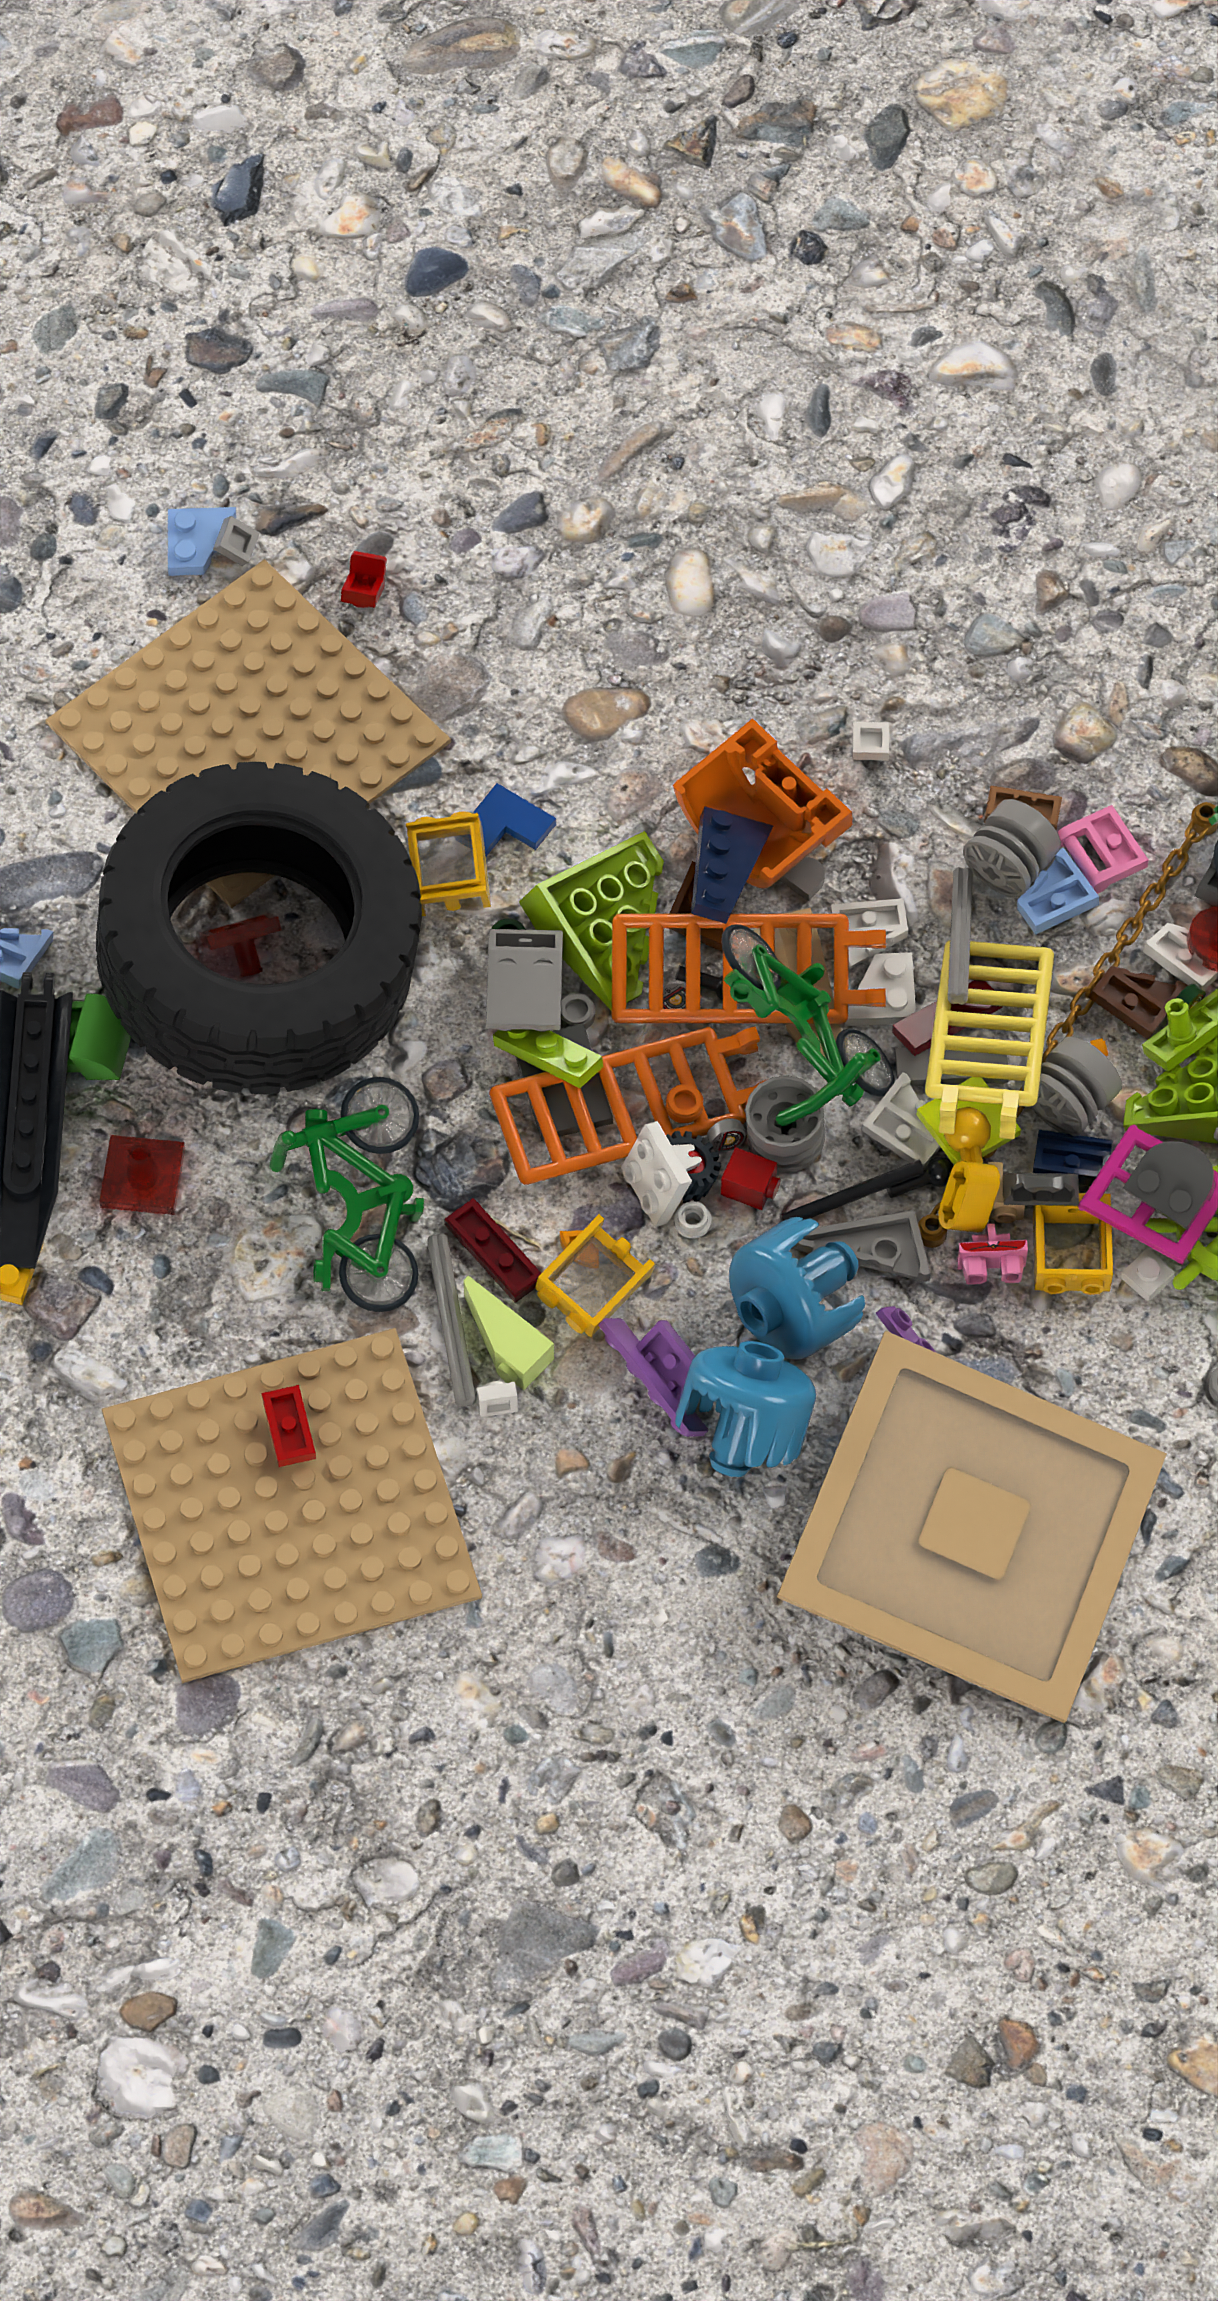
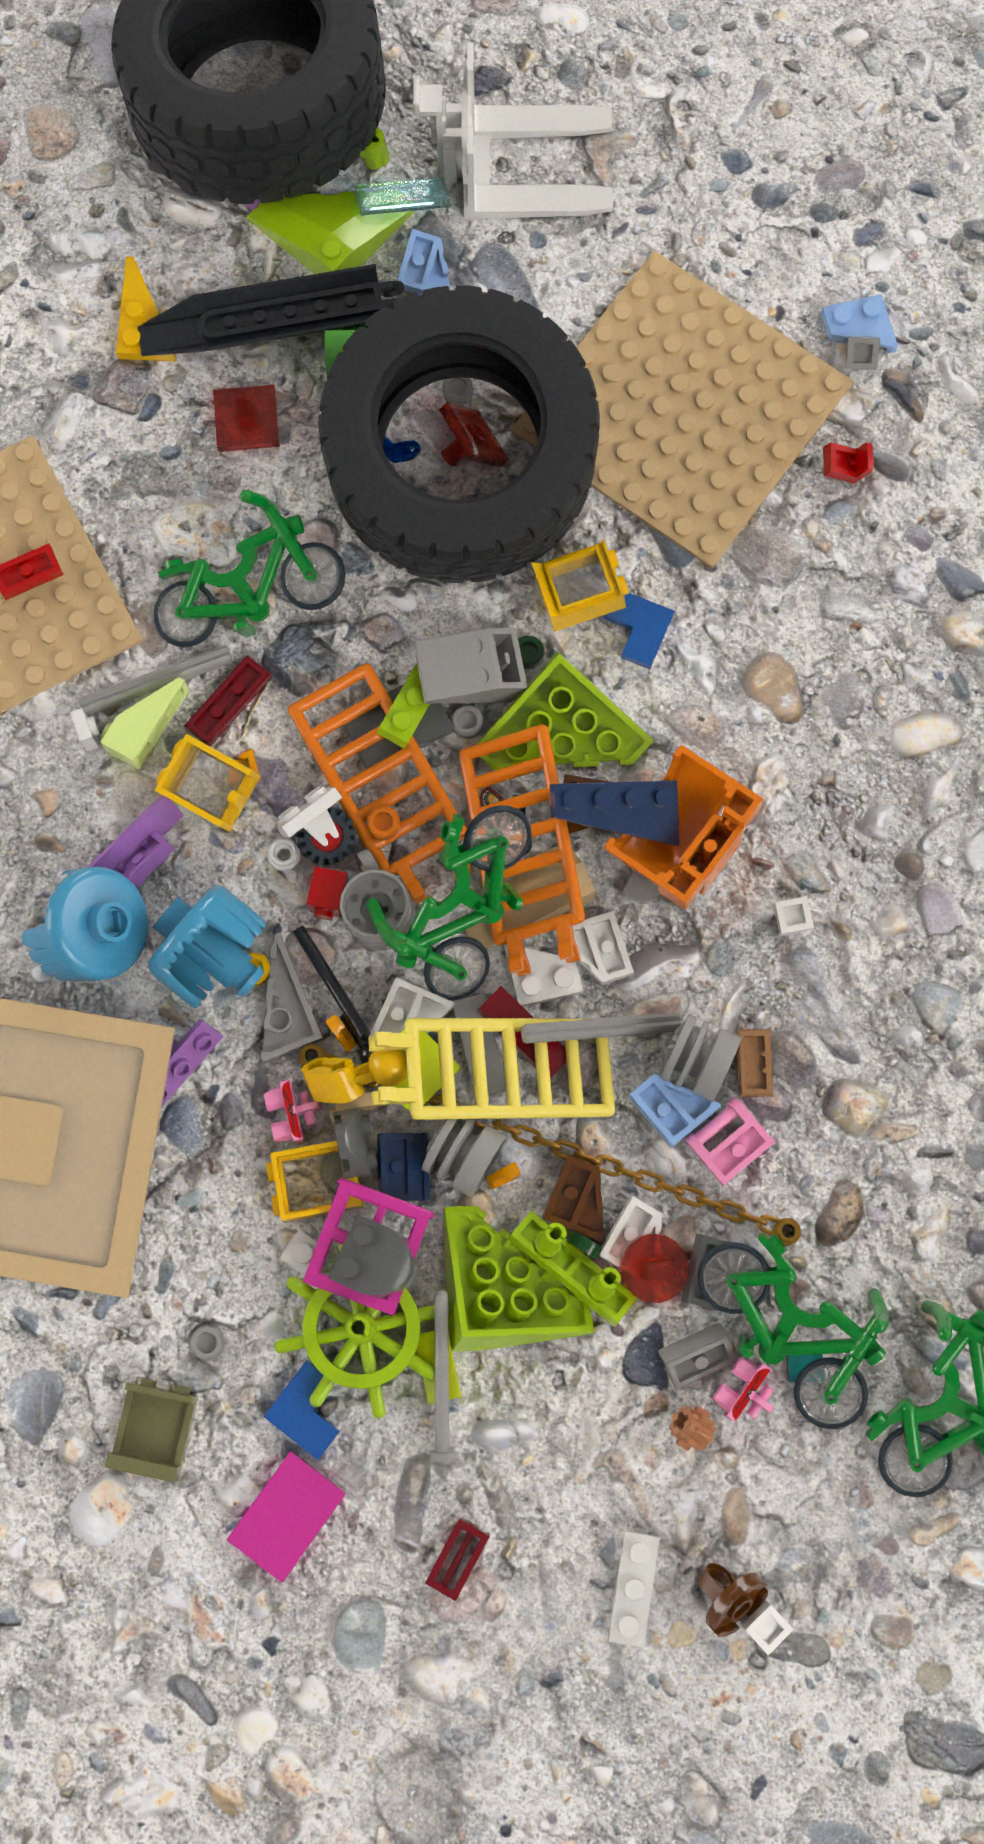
camera: 80 degrees right, 15 degrees up
(909, 1196) = (341, 1033): none -> light orange tile

